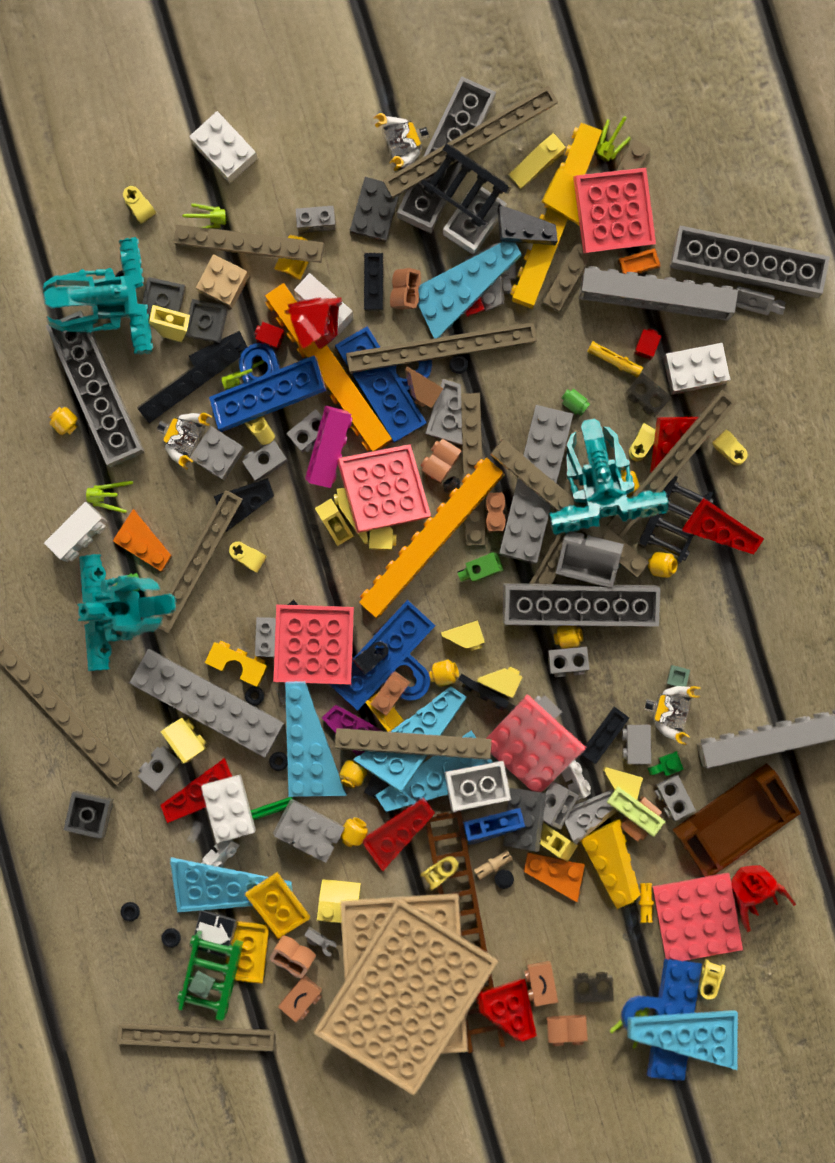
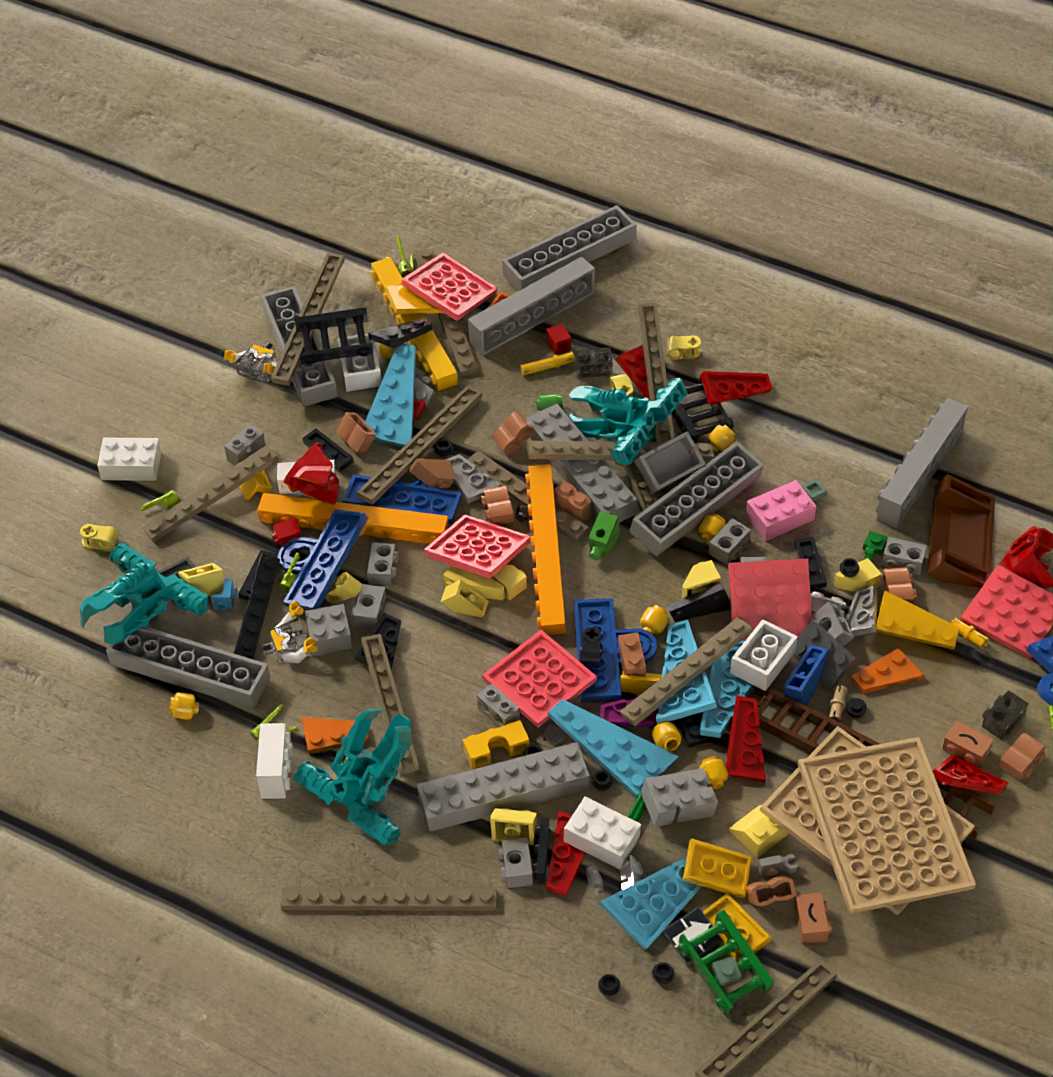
camera: 45 degrees left, 35 degrees down
(88, 814) = (497, 940): dark grey brick -> none
(180, 351) = (225, 600): none -> dark azure bracket
(183, 775) = (541, 850): none -> black plate
(206, 321) = (232, 561): dark grey tile -> none
(222, 281) = (215, 530): tan brick -> none
(249, 558) = (425, 672): light yellow piece -> none
(328, 446) = (407, 554): dark pink brick -> none
(374, 210) = (281, 414): dark grey plate -> none
(437, 873) = (806, 733): light yellow piece -> none
(466, 636) = (641, 587): light yellow slope -> none
(515, 407) = (513, 433): none -> nougat brick
(538, 160) = (367, 297): light yellow slope -> none
(557, 842) = (864, 647): light yellow slope -> none
(617, 775) = (849, 567): none -> black plate
(633, 671) = (780, 510): none -> bright pink brick
(635, 811) = (889, 578): yellowish green tile -> none
(637, 744) = (838, 546): light grey brick -> none
(672, 711) = (835, 509): torso -> none
(696, 368) = (607, 324): white brick -> none
(758, 301) = (606, 264): light grey plate -> none

